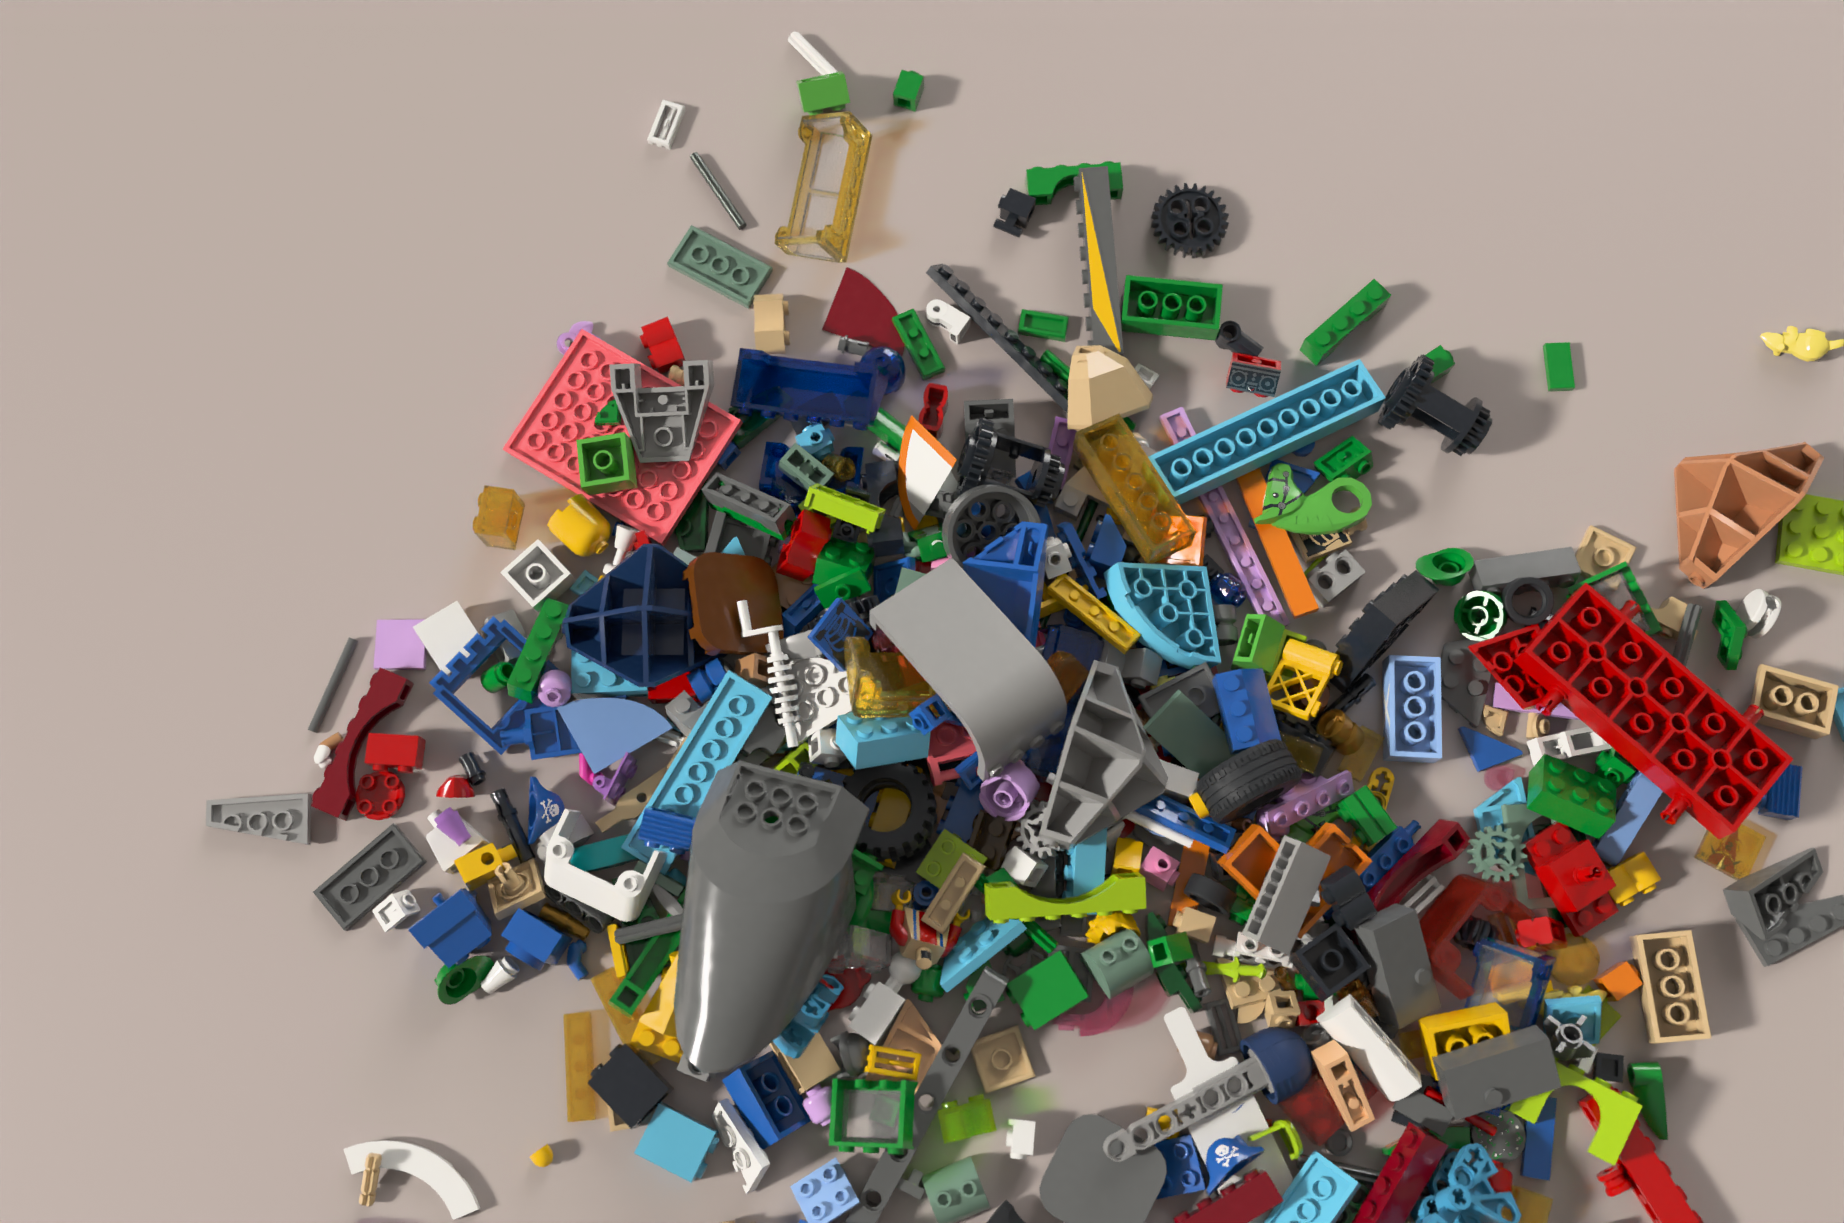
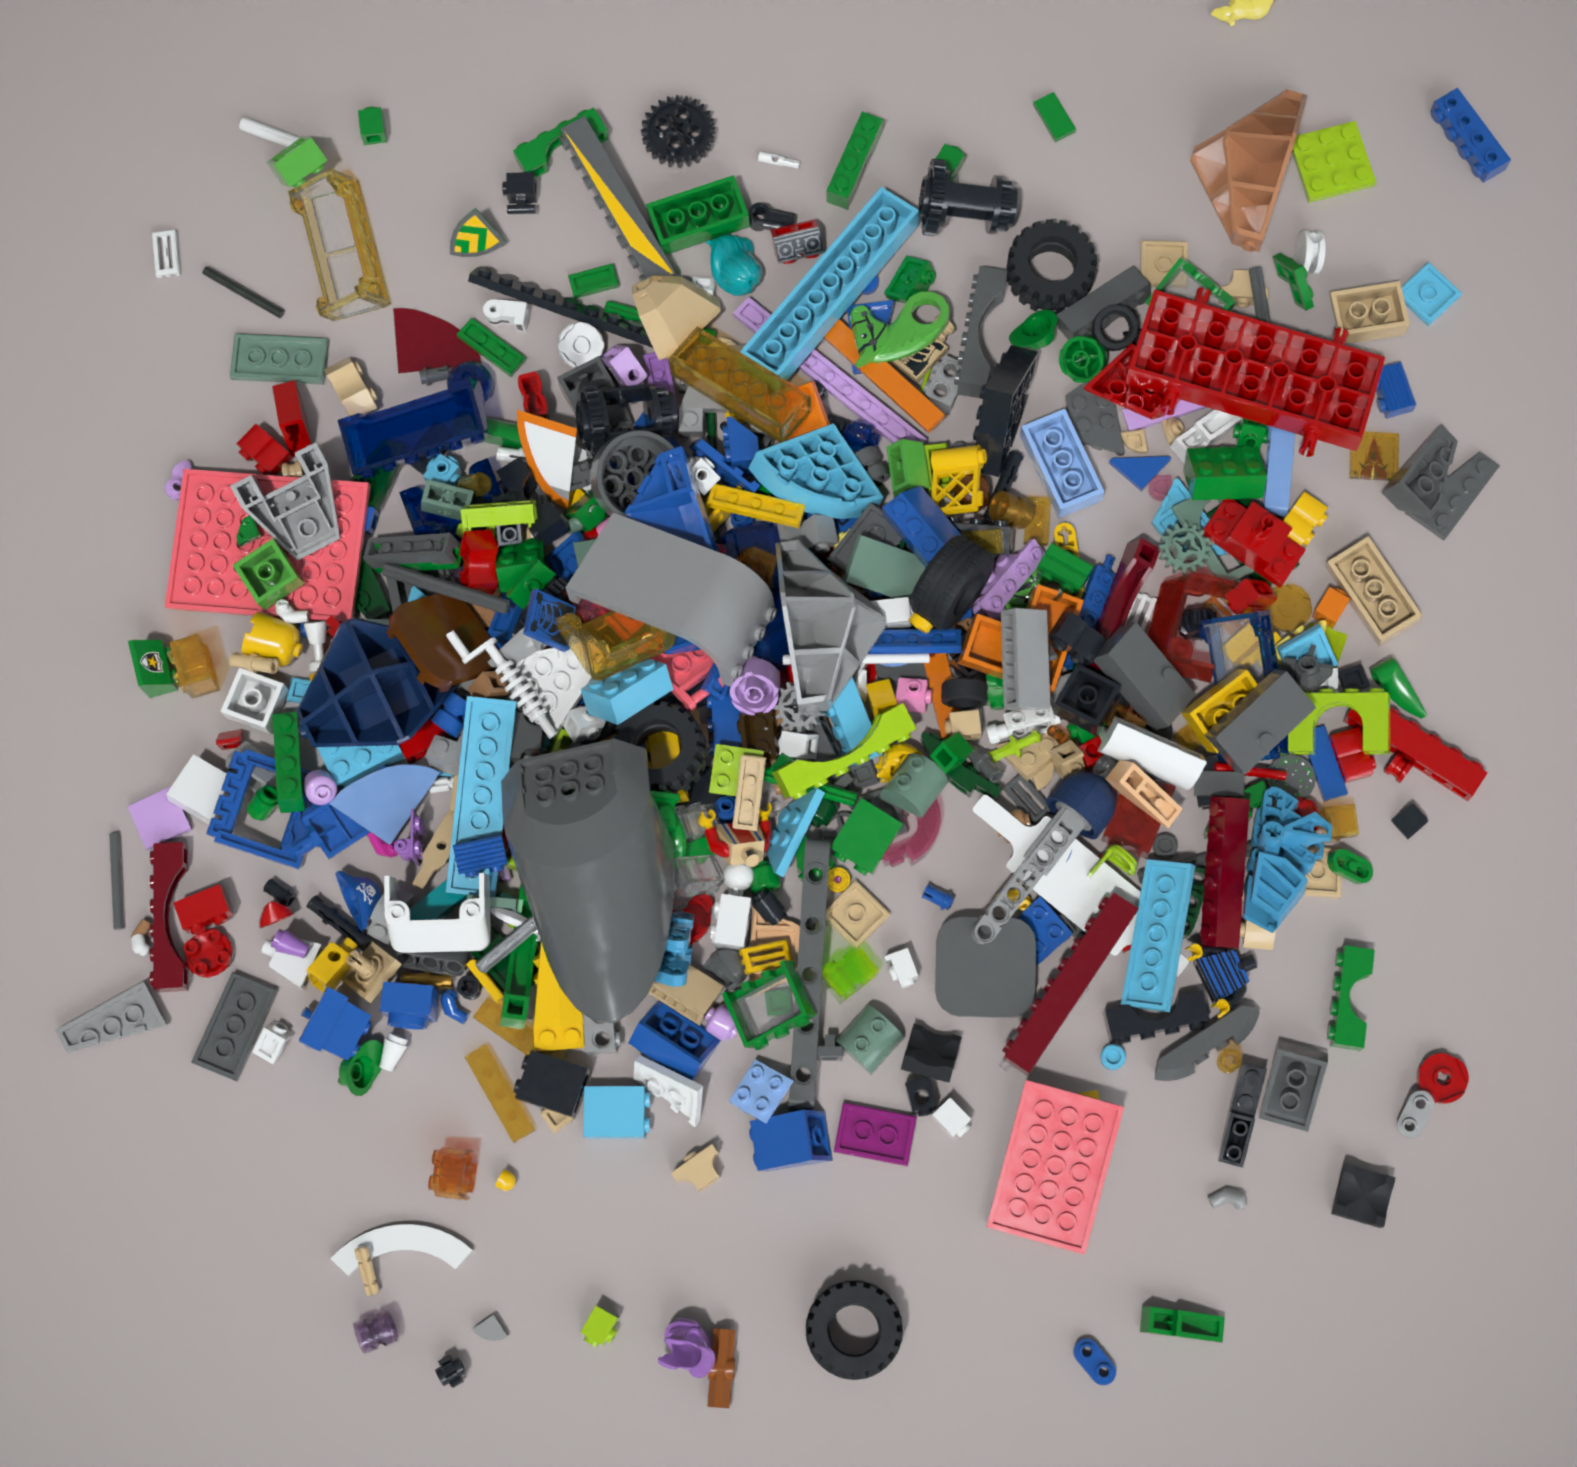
camera: 25 degrees left, 0 degrees up
(460, 499) = (153, 667): none -> green slope
(495, 1126) = (453, 1173): none -> clear orange brick
(500, 601) = (230, 739): none -> red slope
(553, 541) = (254, 663): none -> tan pin
(595, 943) = (461, 987): none -> black bush
(608, 509) = (288, 614): none -> white arm
(703, 325) = (291, 416): none -> red slope
(763, 555) = (446, 588): none -> dark grey axle
(919, 1013) = (768, 906): none -> black brick
(924, 719) = (656, 655): blue brick -> none
(952, 234) = (474, 236): none -> shield
(1001, 1016) = (838, 880): none -> yellow tile
(1002, 379) = (580, 344): none -> tile
(1030, 414) = (621, 362): none -> lavender torso
(1090, 1083) = (938, 897): none -> blue pin
(1183, 369) = (734, 264): none -> teal piece
(1227, 1158) = (1079, 898): blue hat -> none
(1262, 282) = (767, 158): none -> white pin
(1370, 575) = (989, 293): none -> dark grey arch
(1509, 487) = (1057, 239): none -> black tyre
(1571, 1142) = (1350, 755): none -> red brick

